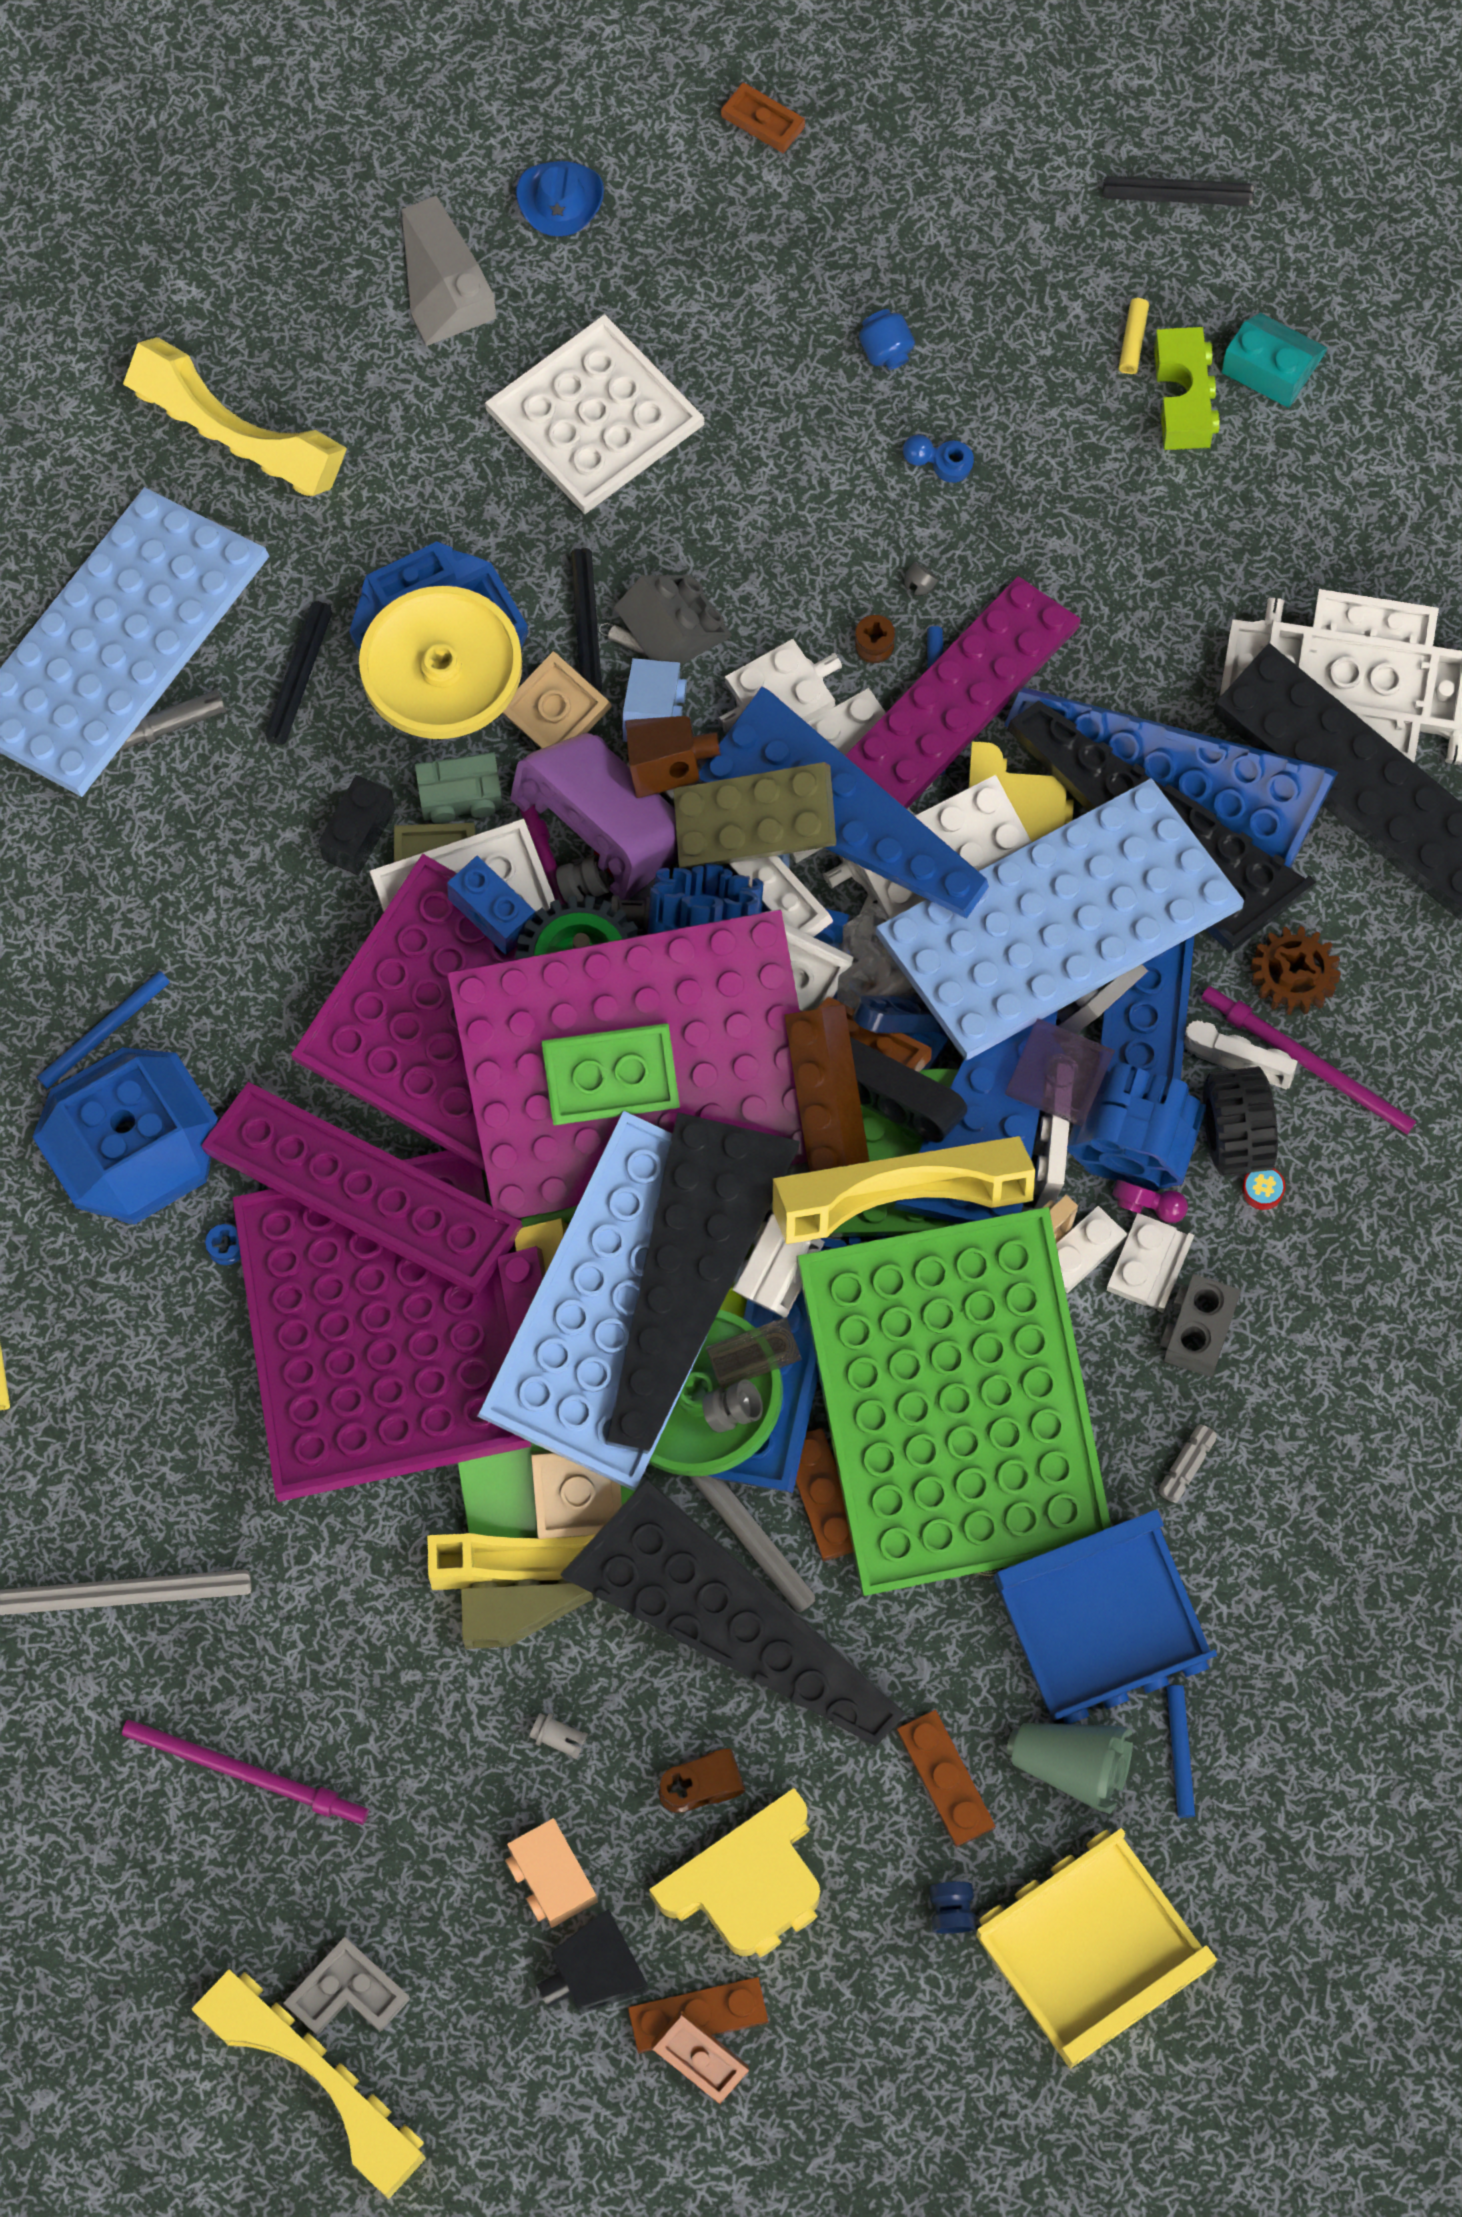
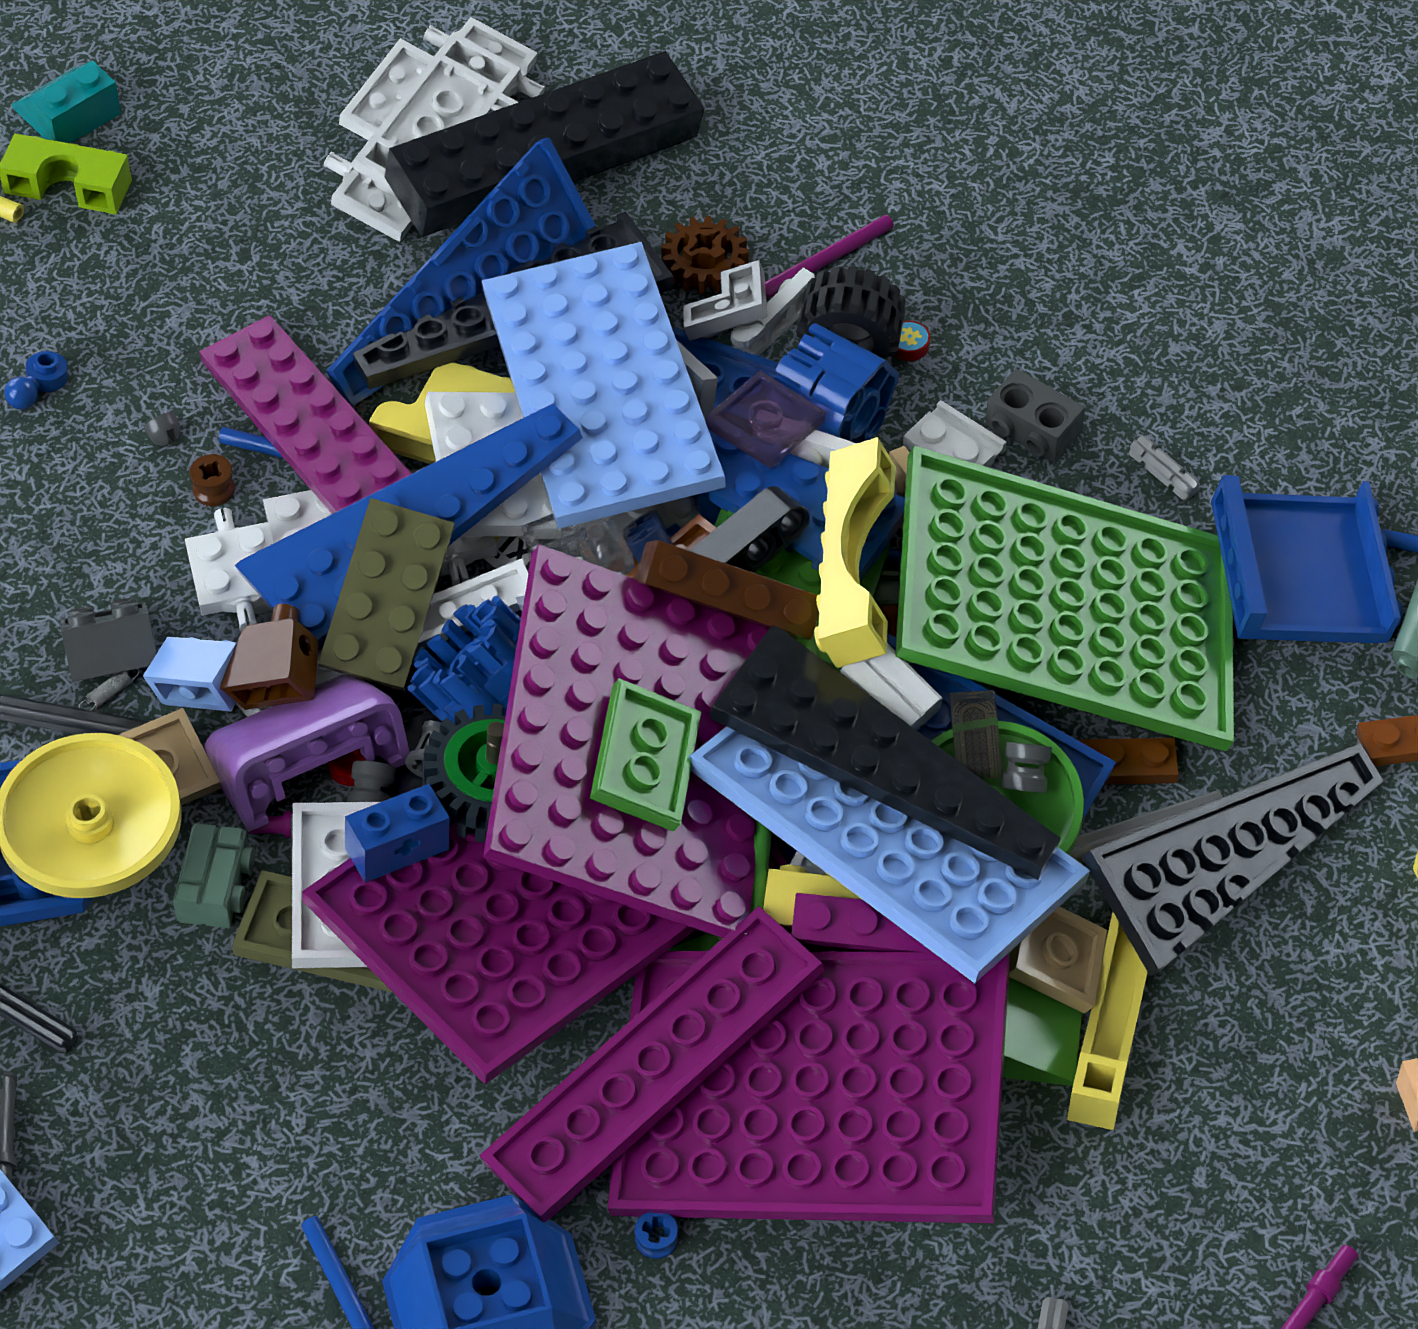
camera: 75 degrees left, 15 degrees down
(357, 825) = (216, 979): black brick -> none
(508, 1614) = (1167, 1056): olive slope -> none
(554, 1734) = (1298, 1057): light grey pin -> none
(709, 1778) = (1386, 936): reddish brown piece -> none
(1169, 1206) = (903, 411): magenta plate -> none
(1223, 1015) = (739, 304): none -> light grey plate

